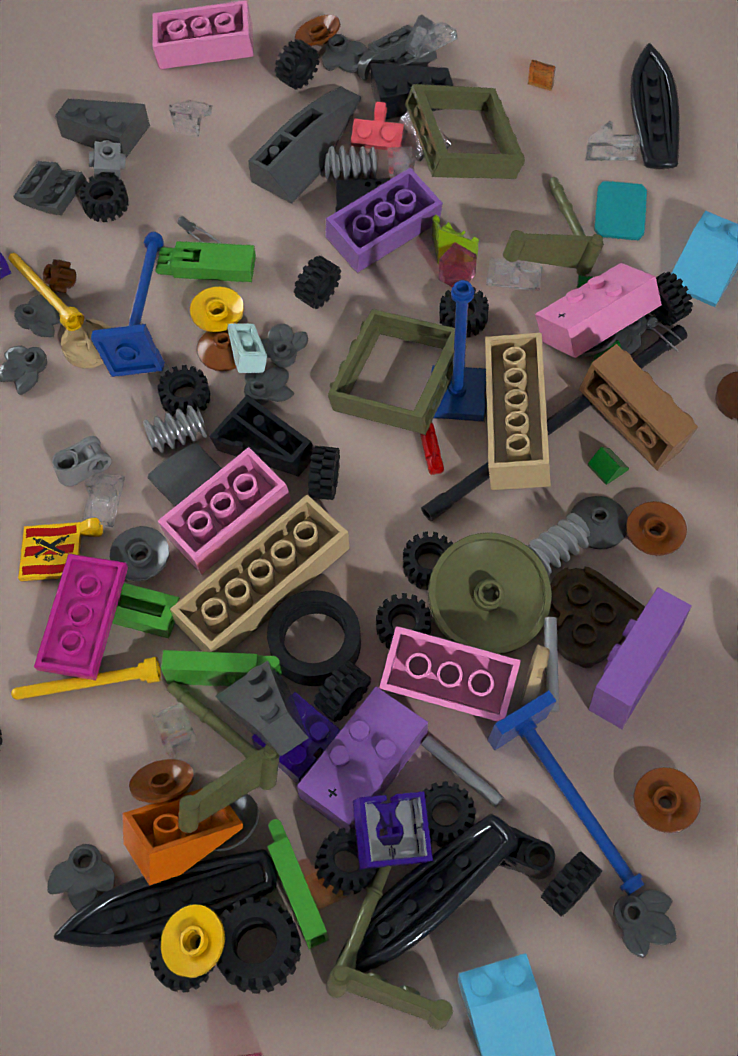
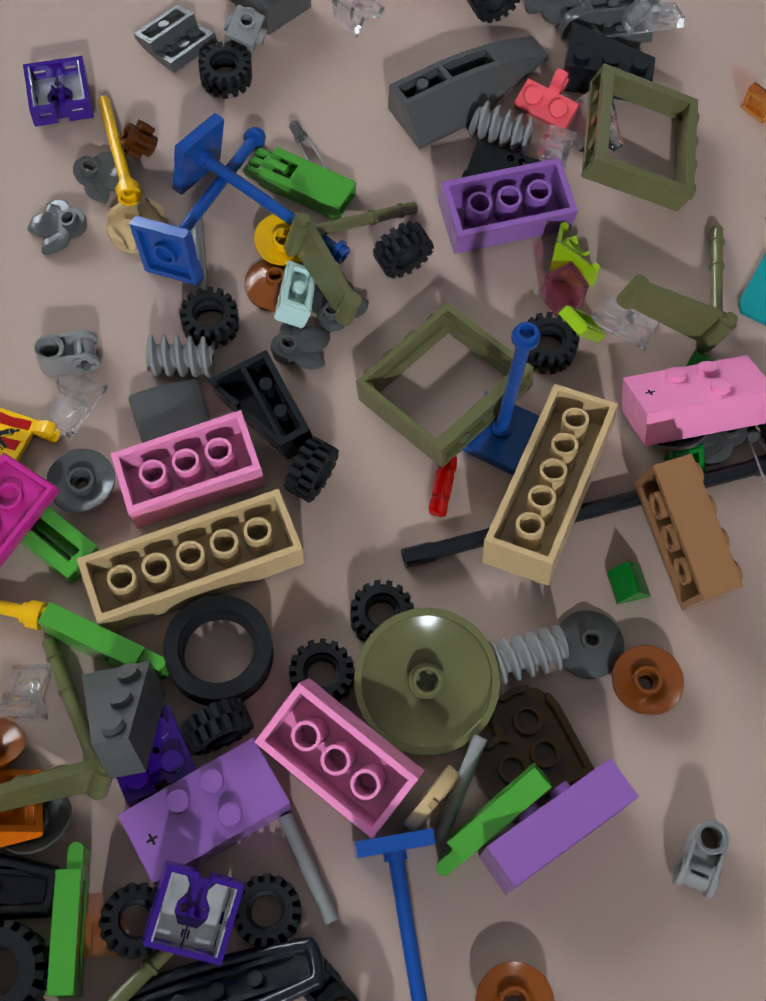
camera: 15 degrees right, 5 degrees up
(118, 268) = (202, 153): none -> blue tile
(249, 309) = (307, 242): none -> olive piece
(485, 286) = (582, 324): none -> lime tile
(589, 669) = (493, 818): none -> bright green hinge

